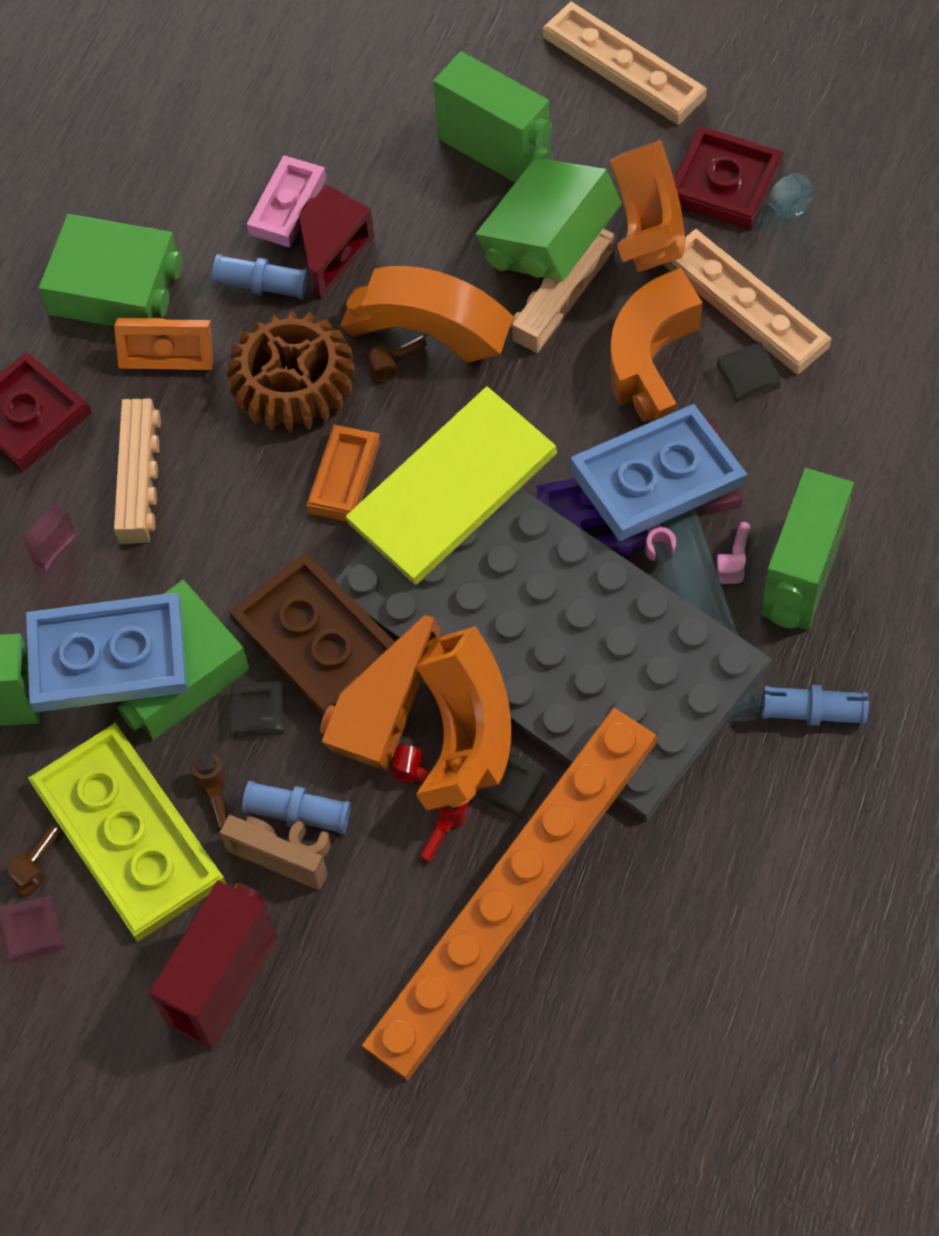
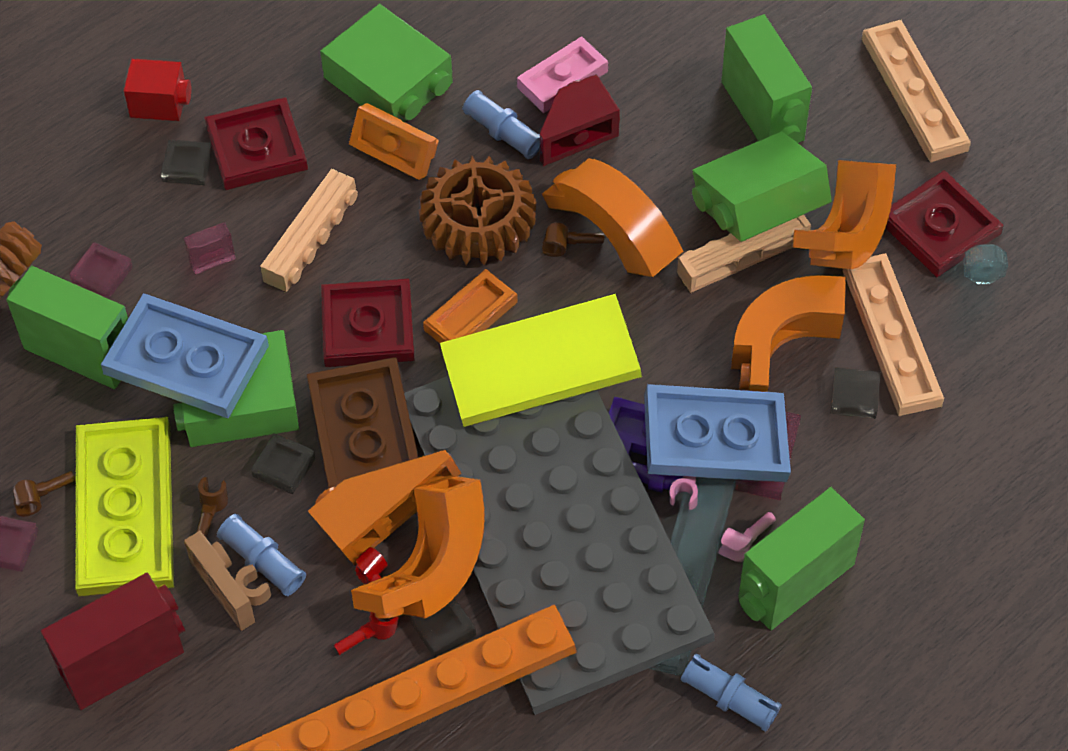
camera: 25 degrees right, 5 degrees down
(250, 532) = (367, 322): none -> dark red tile

